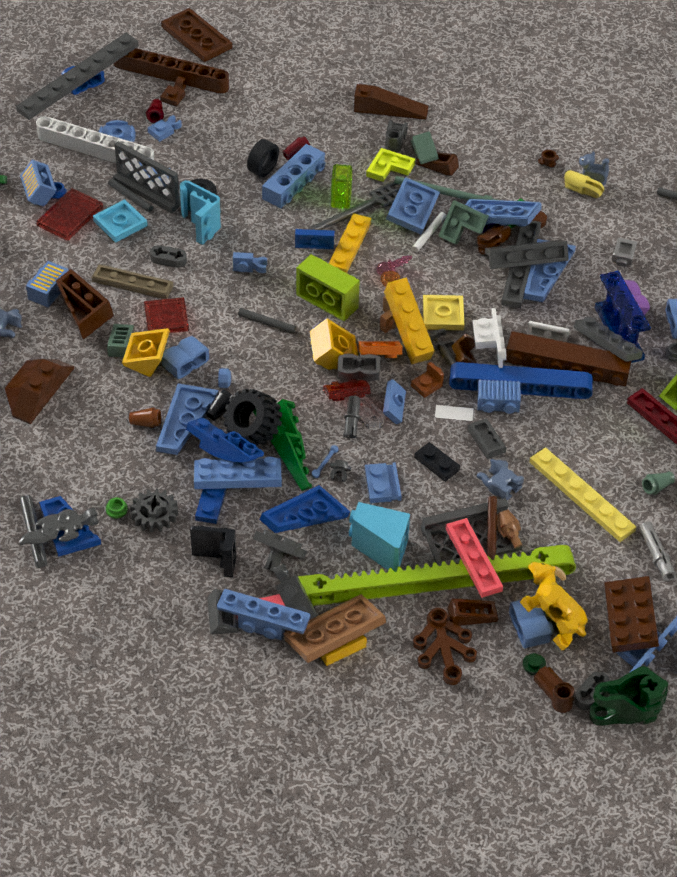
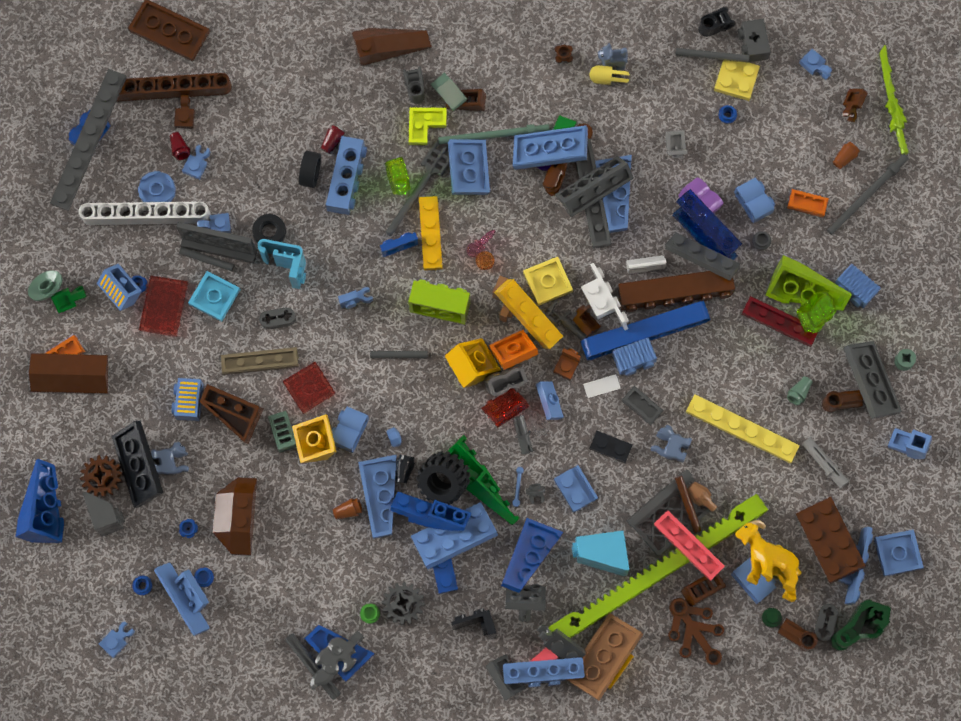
camera: 20 degrees left, 25 degrees up
(428, 232) = (494, 189): white bar -> none
(459, 218) = (521, 169): sand green plate -> none

